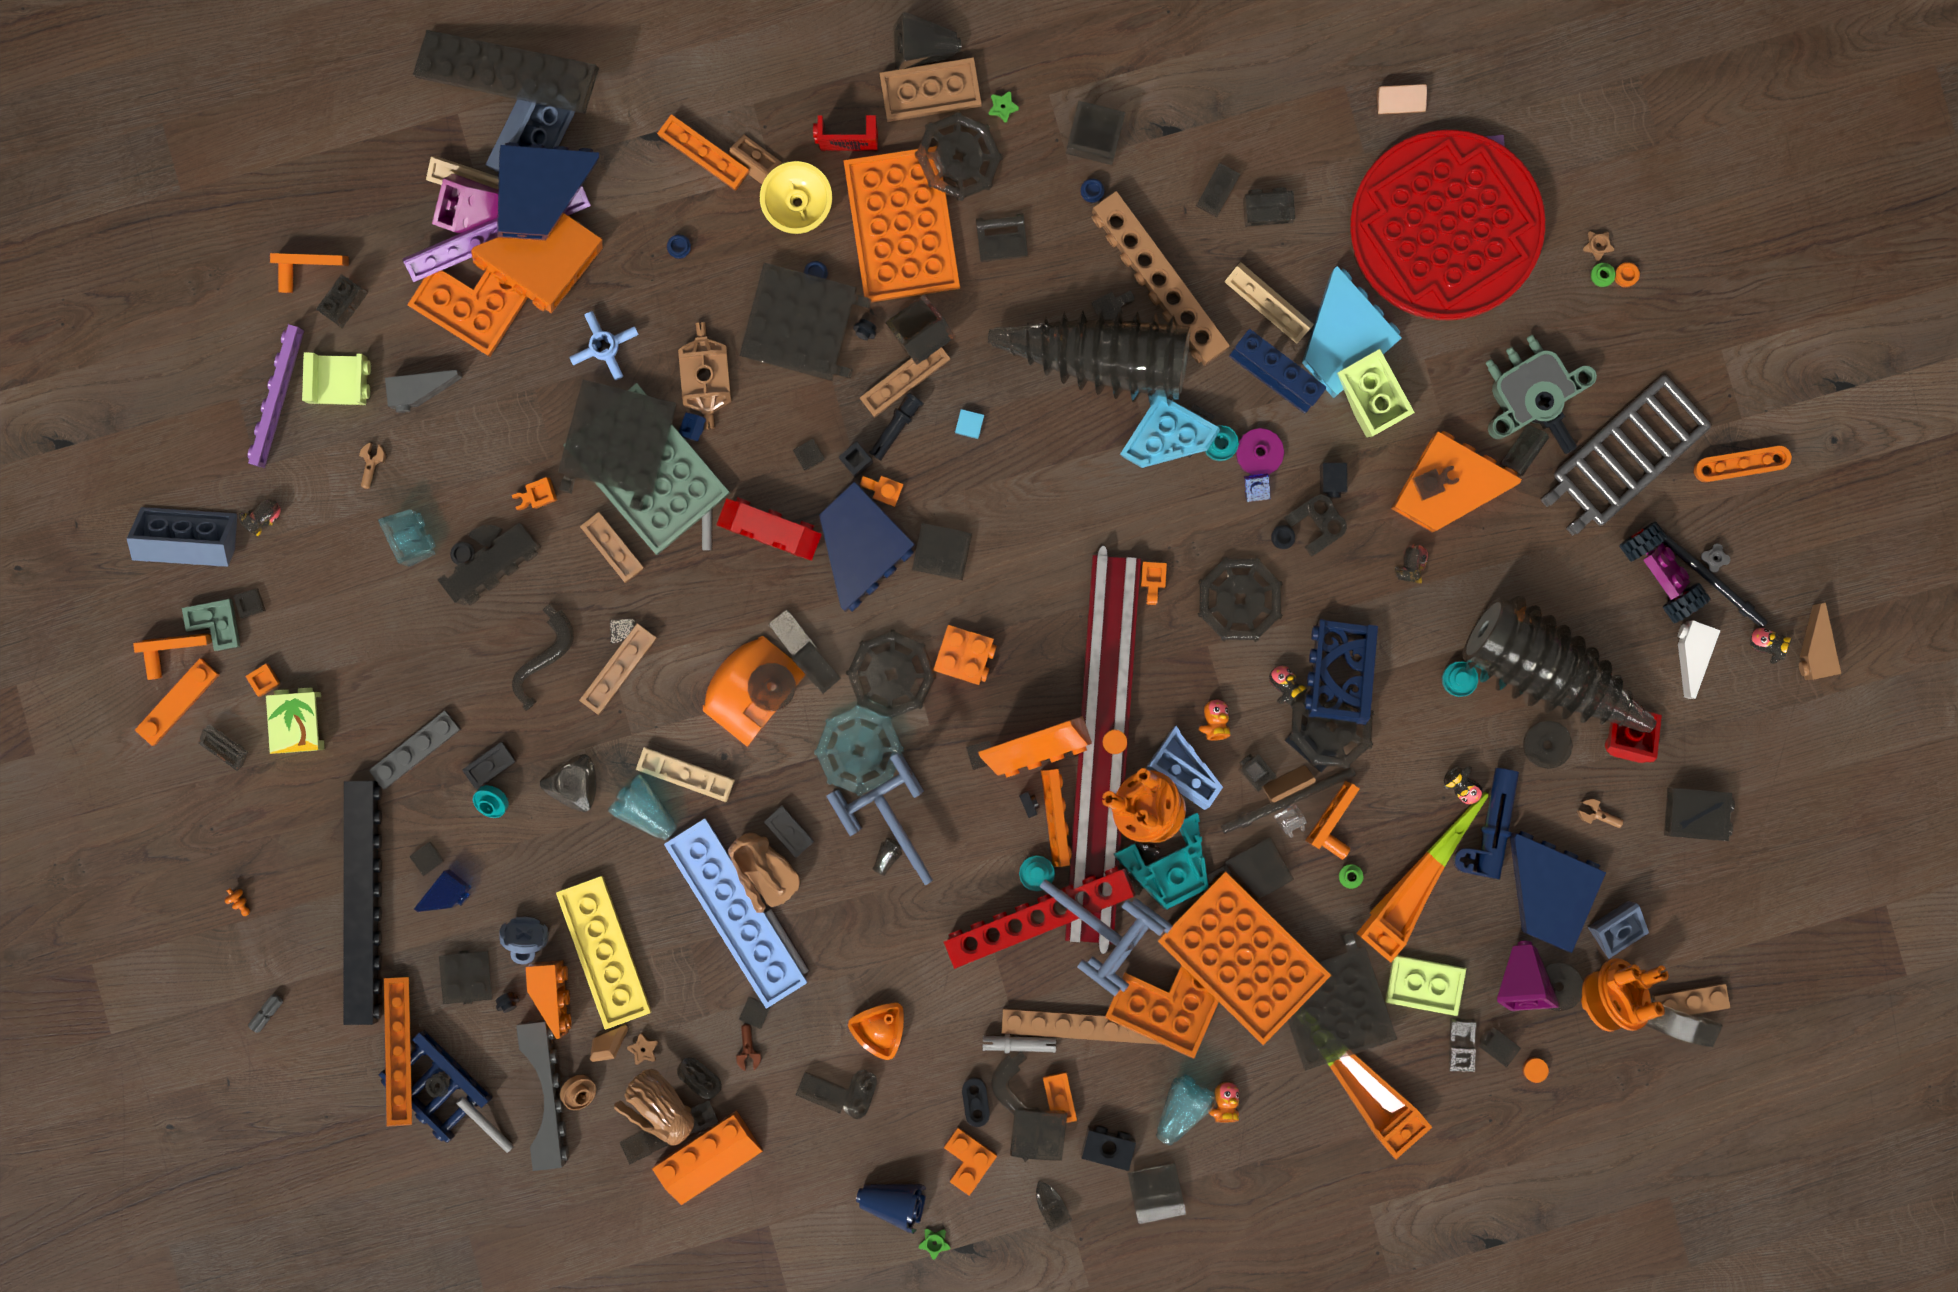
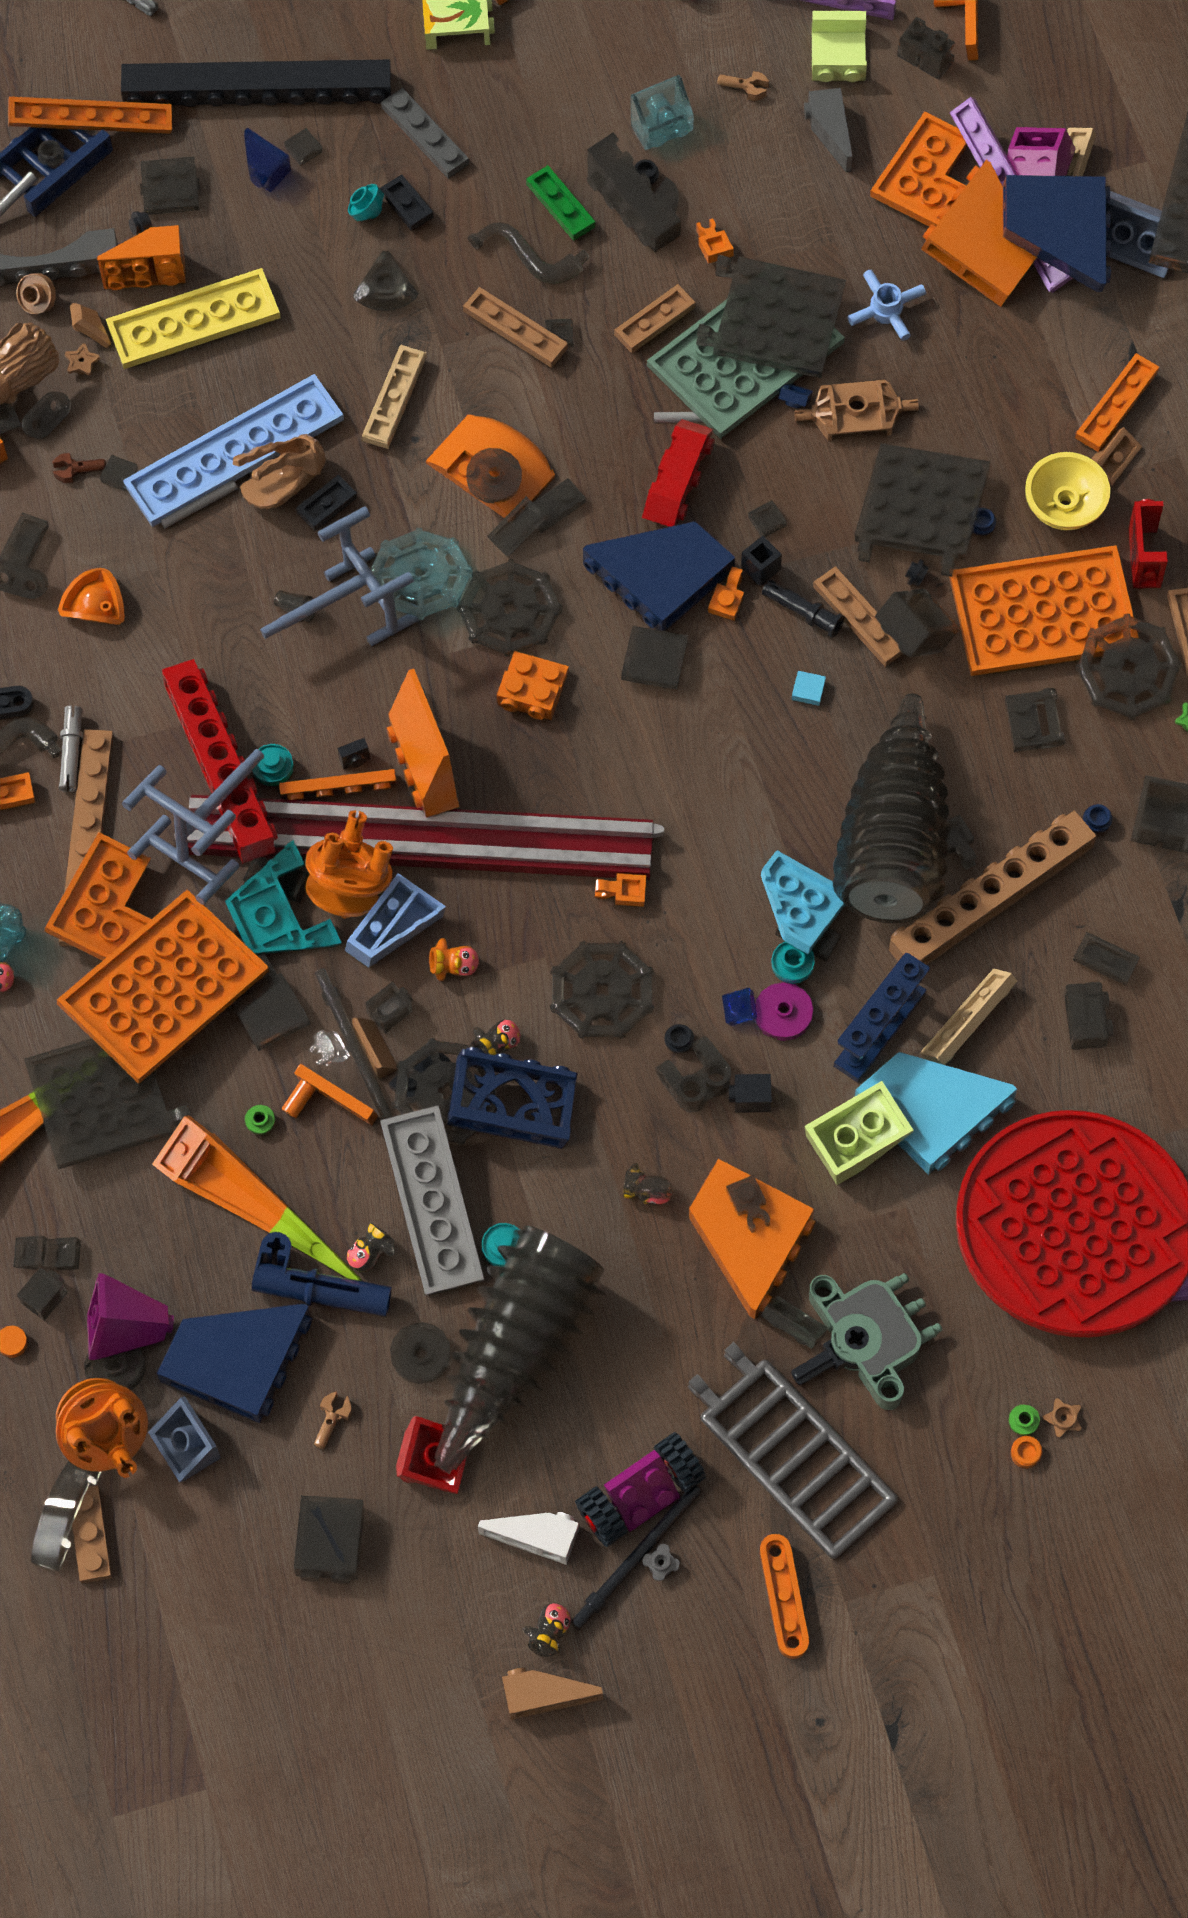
camera: 90 degrees right, 20 degrees down
(492, 629) = (560, 203): none -> green plate
(524, 937) = (212, 234): sand blue tile -> none
(643, 809) = (354, 350): clear light blue cone -> none
(679, 246) = (1006, 380): dark blue plate -> none
(1114, 742) = (427, 840): orange tile -> none
(1425, 985) = (123, 1210): yellowish green tile -> none
(1427, 736) = (432, 1200): none -> light grey plate

